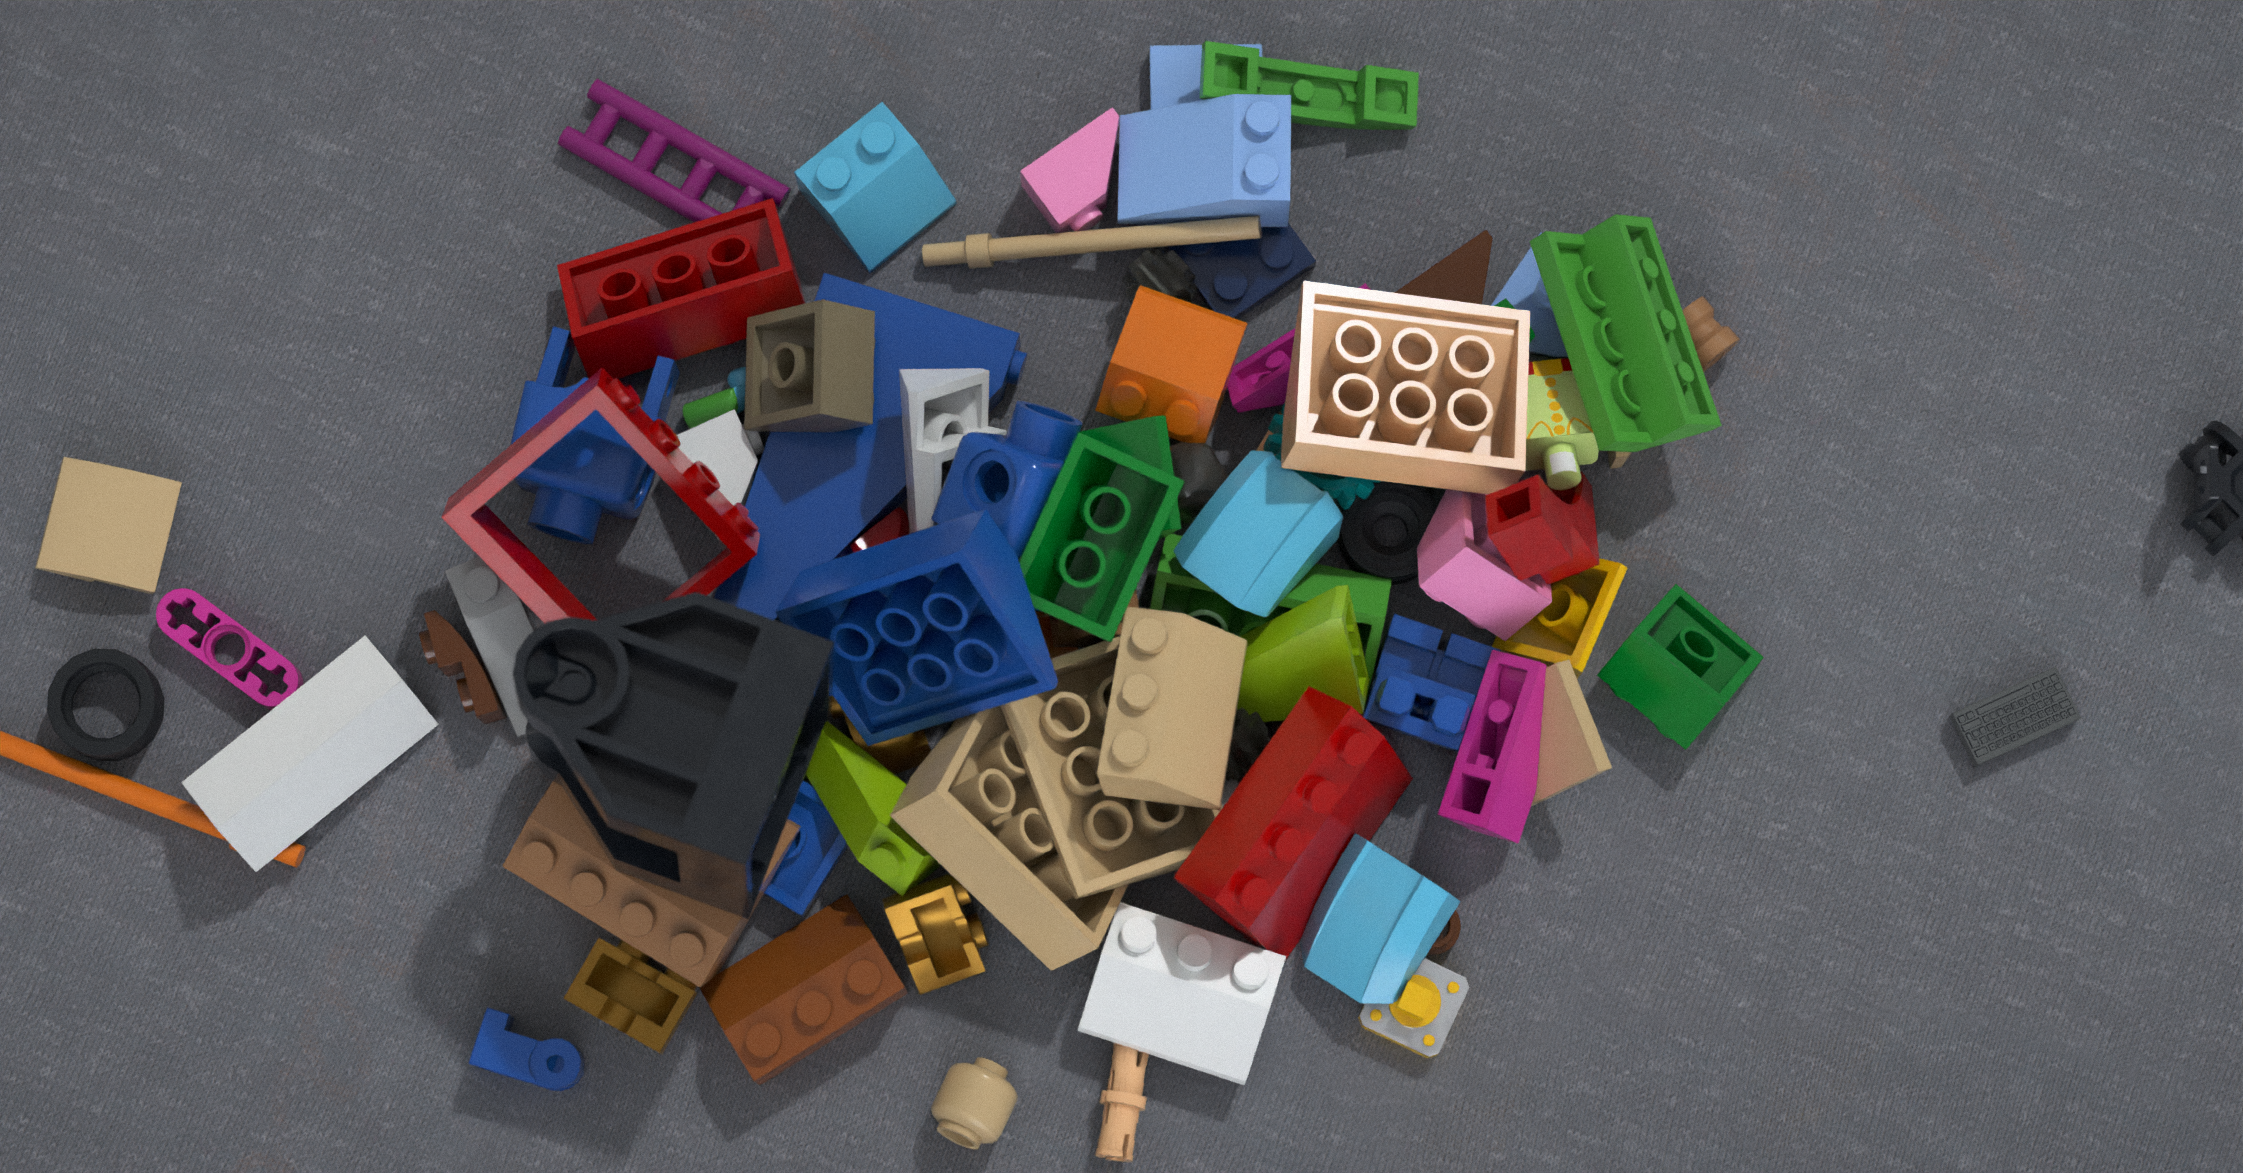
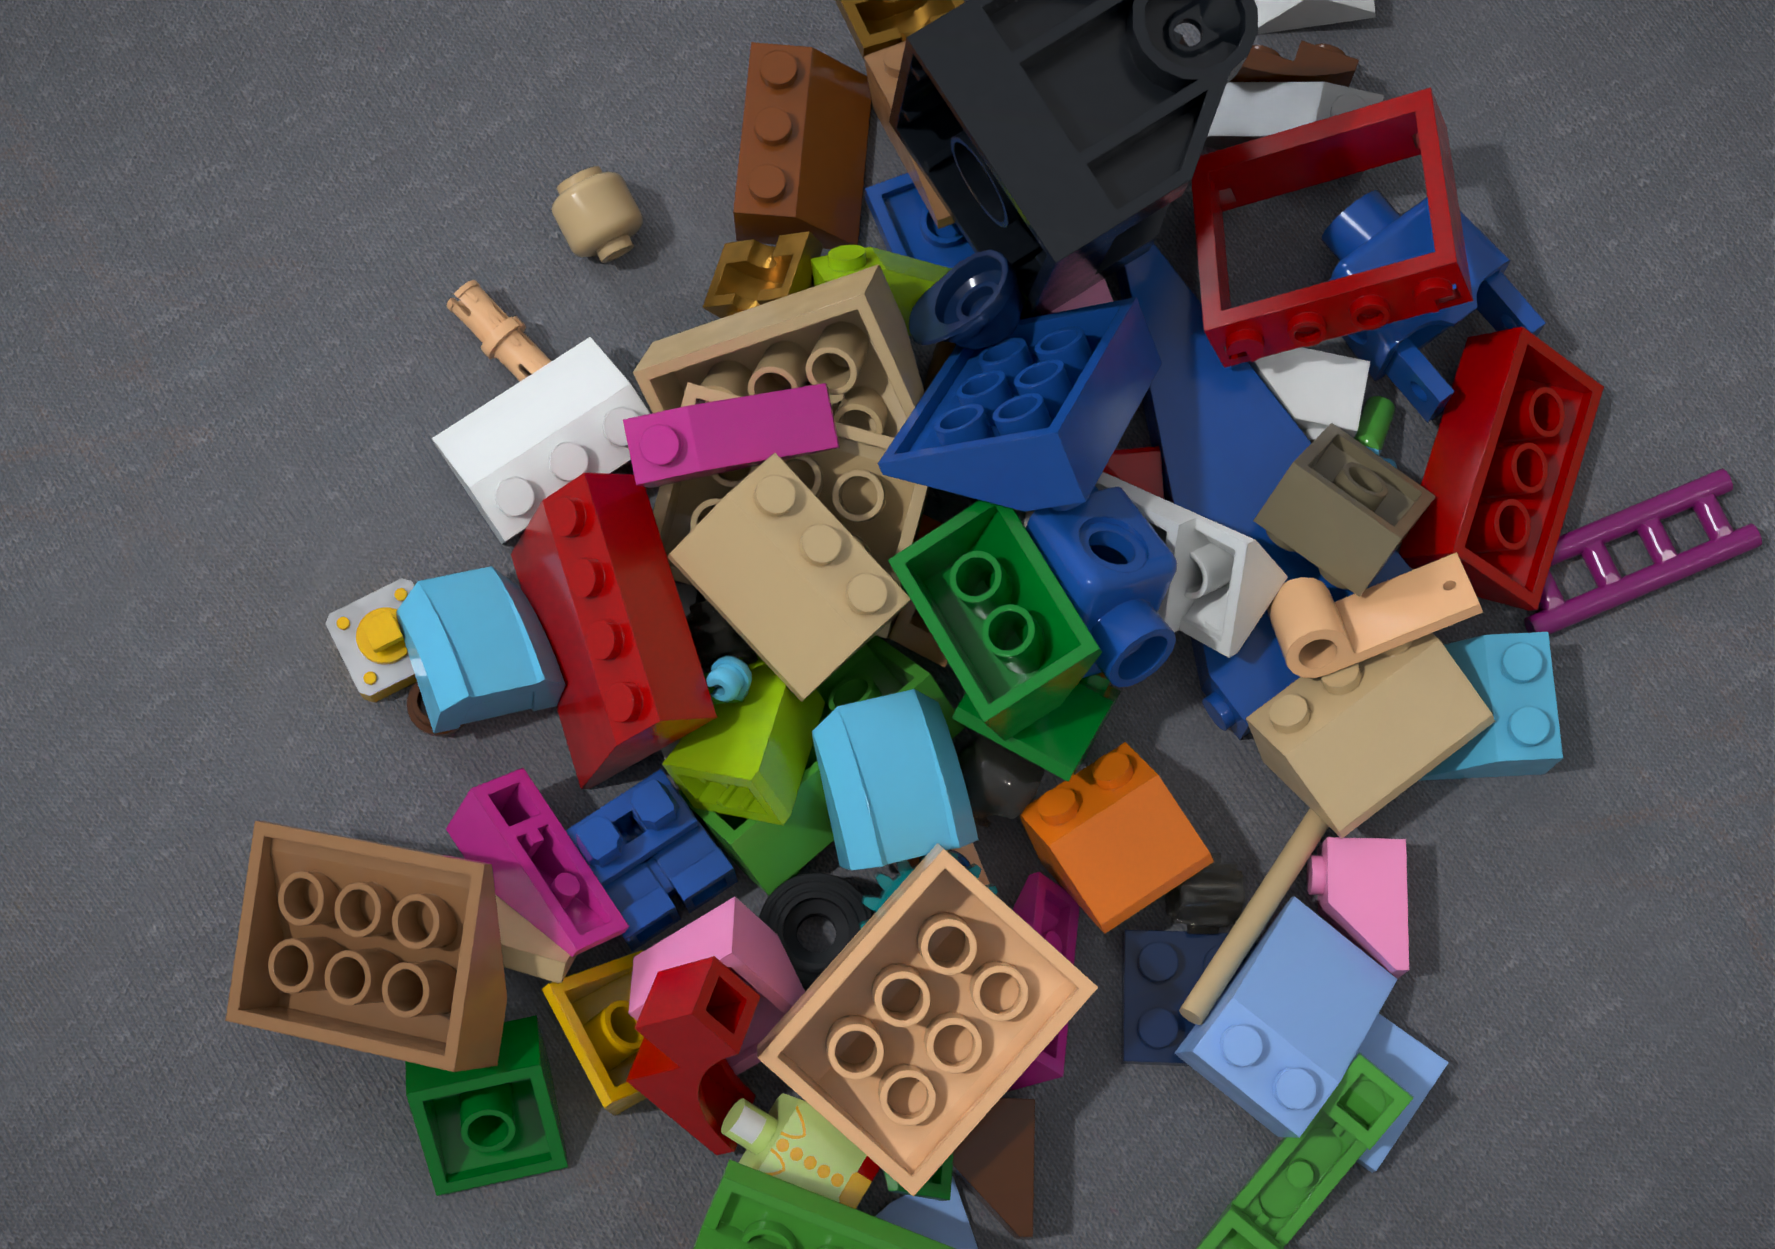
camera: 125 degrees right, 5 degrees down
(863, 742) = (970, 305): none -> dark blue hat
(910, 308) = (1331, 635): none -> light nougat door
(954, 249) = (1368, 729): none -> tan slope
(1101, 829) = (729, 434): none -> dark pink slope
(1273, 705) = (728, 680): none -> medium azure arm
(1653, 804) = (370, 948): none -> medium nougat slope

